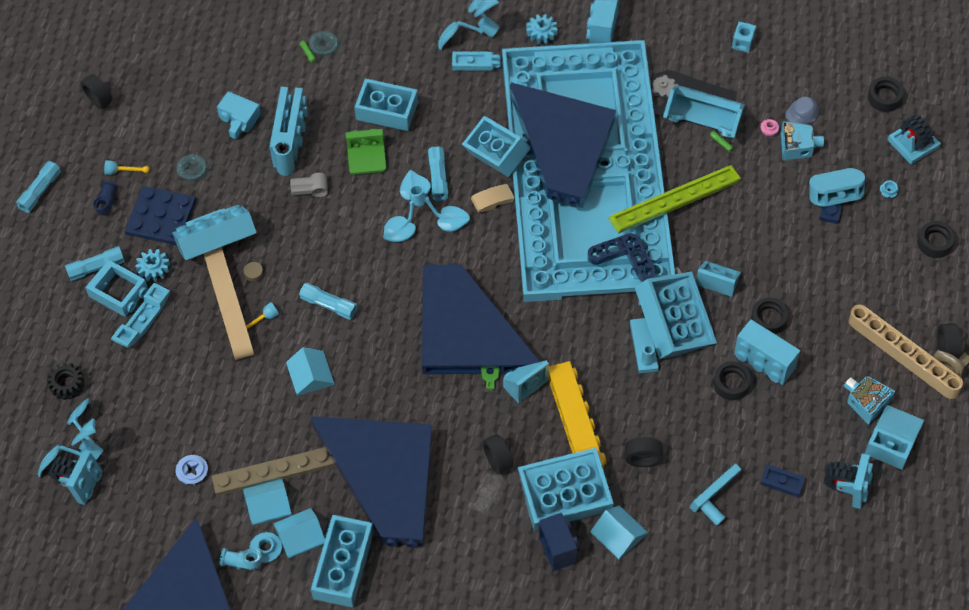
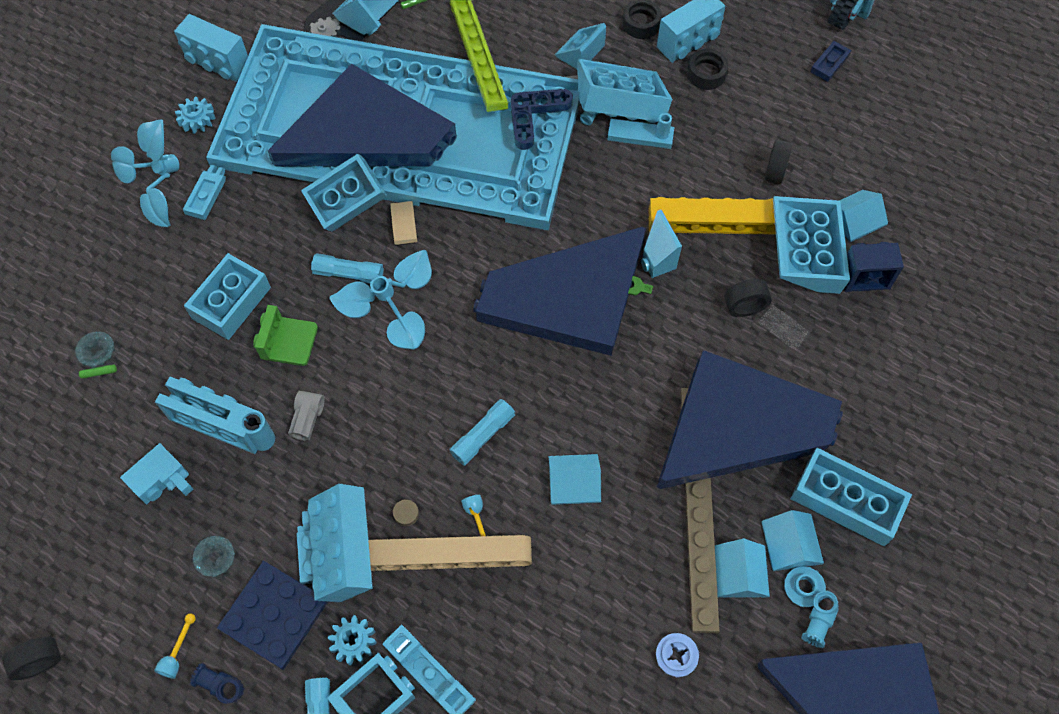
camera: 75 degrees left, 5 degrees up
(703, 503) = (831, 118): medium azure piece -> none

